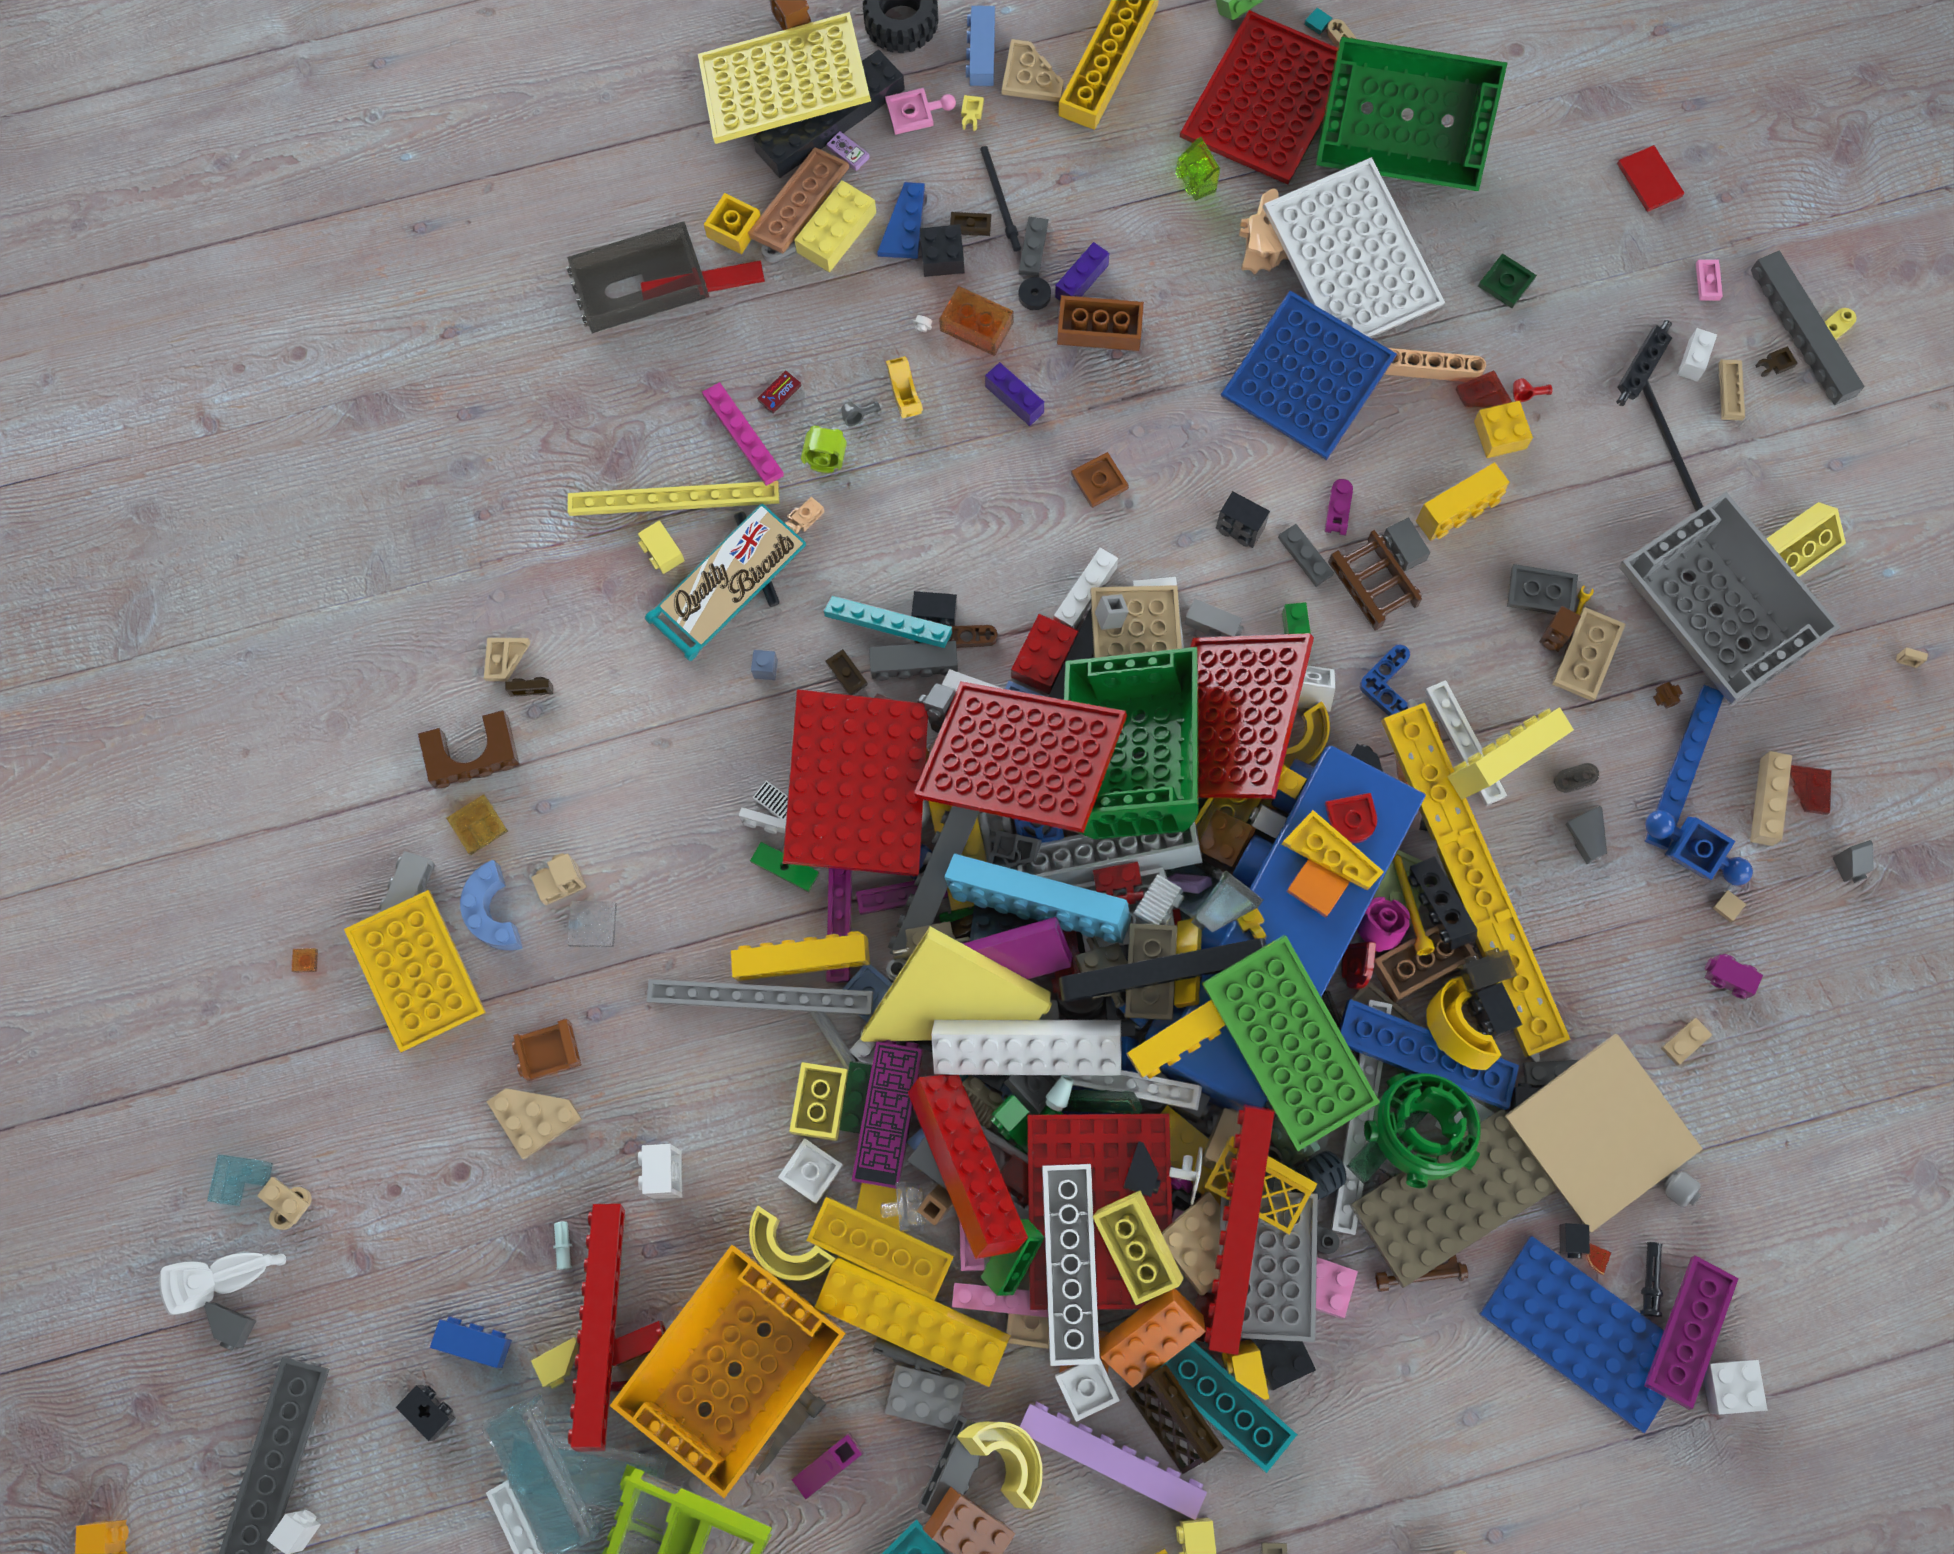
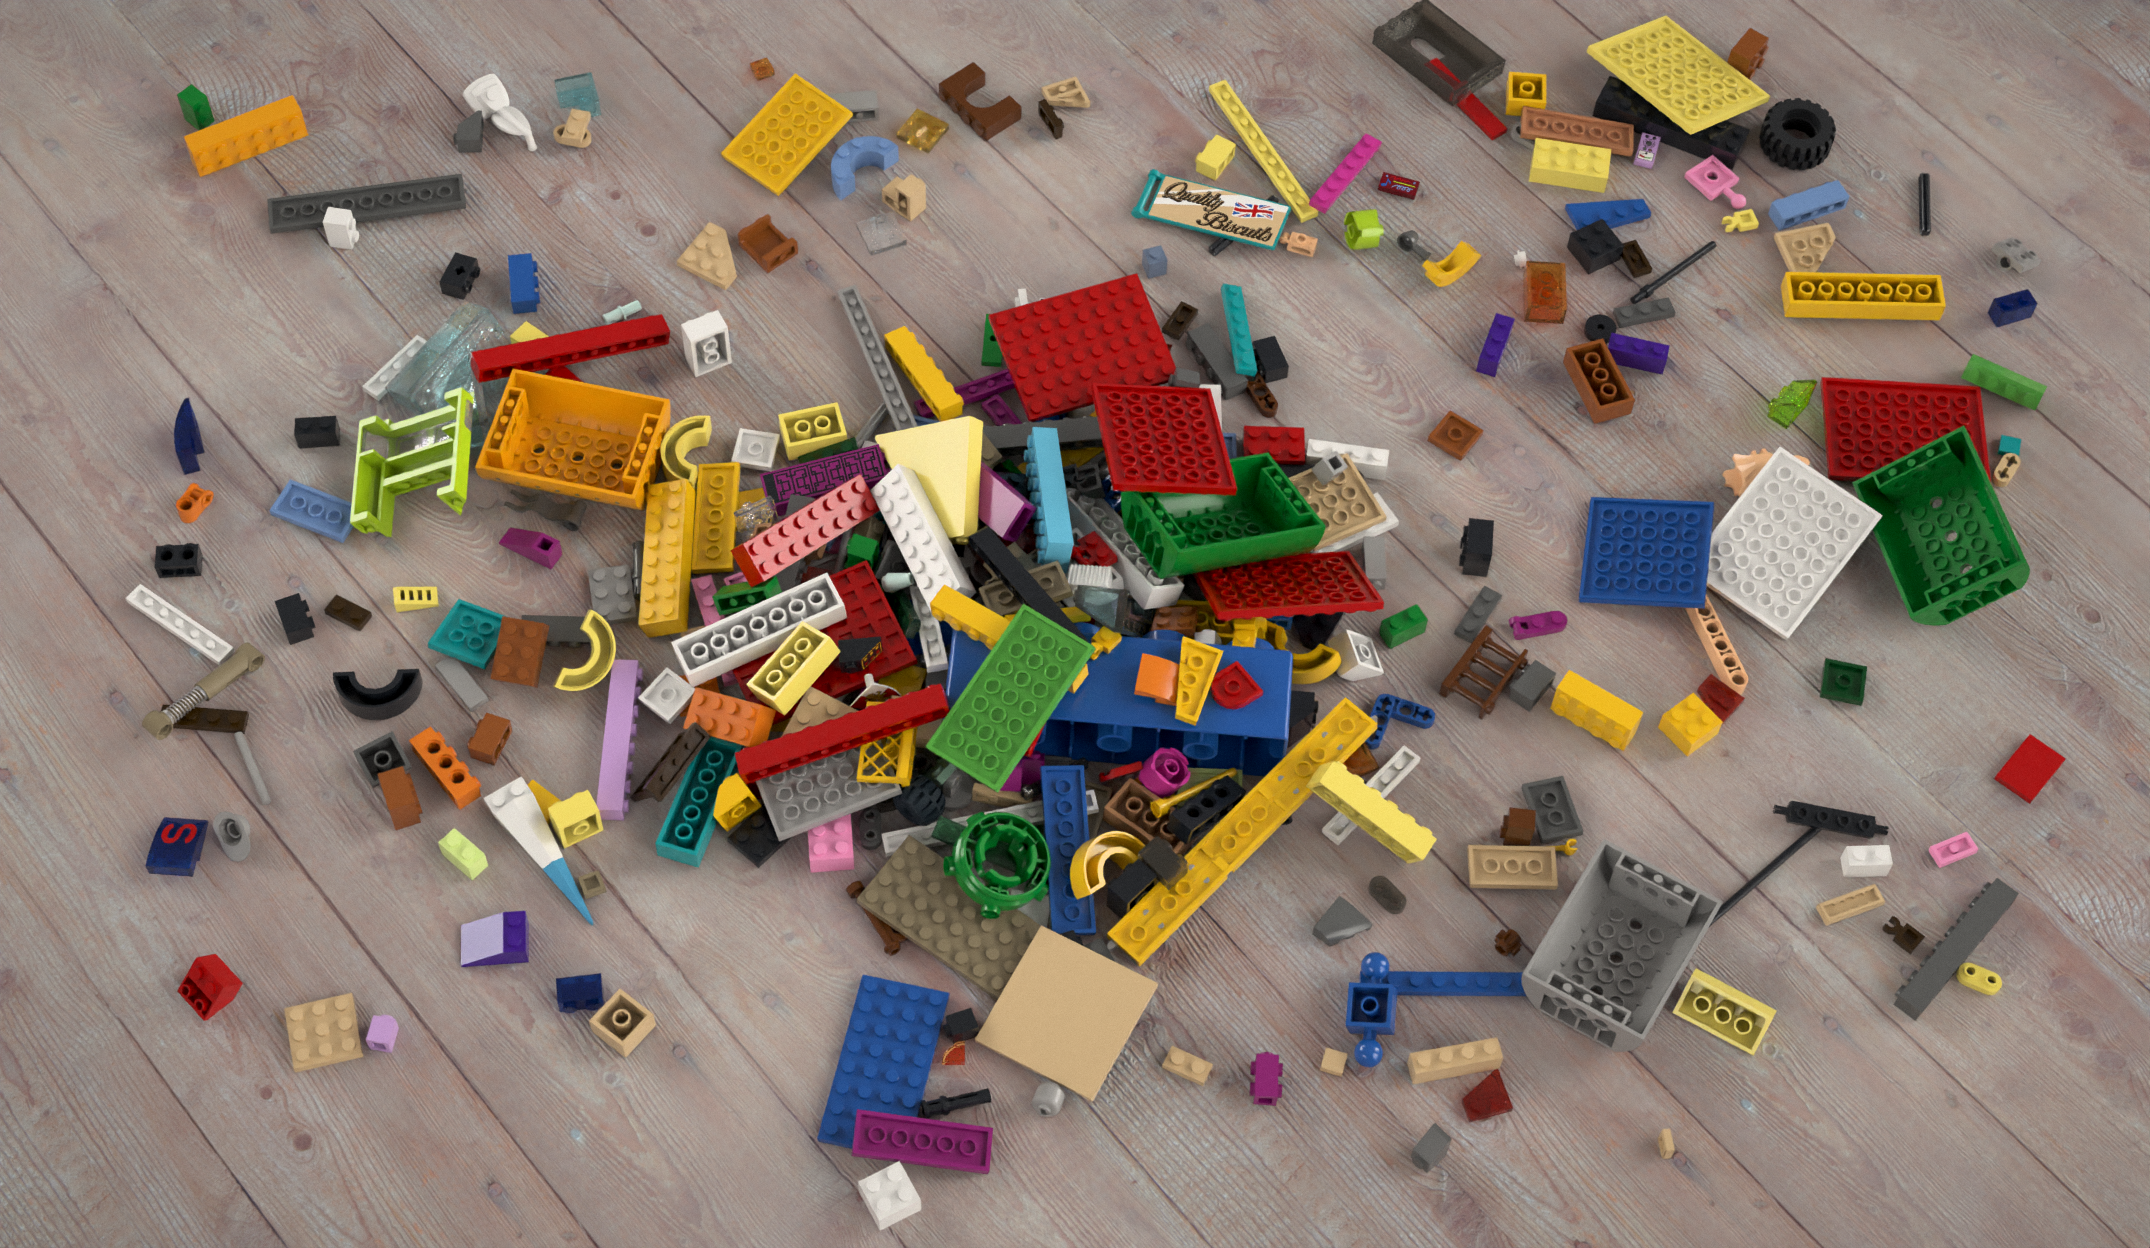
camera: 60 degrees right, 15 degrees down
(1525, 391) = (1740, 731): red bar -> none

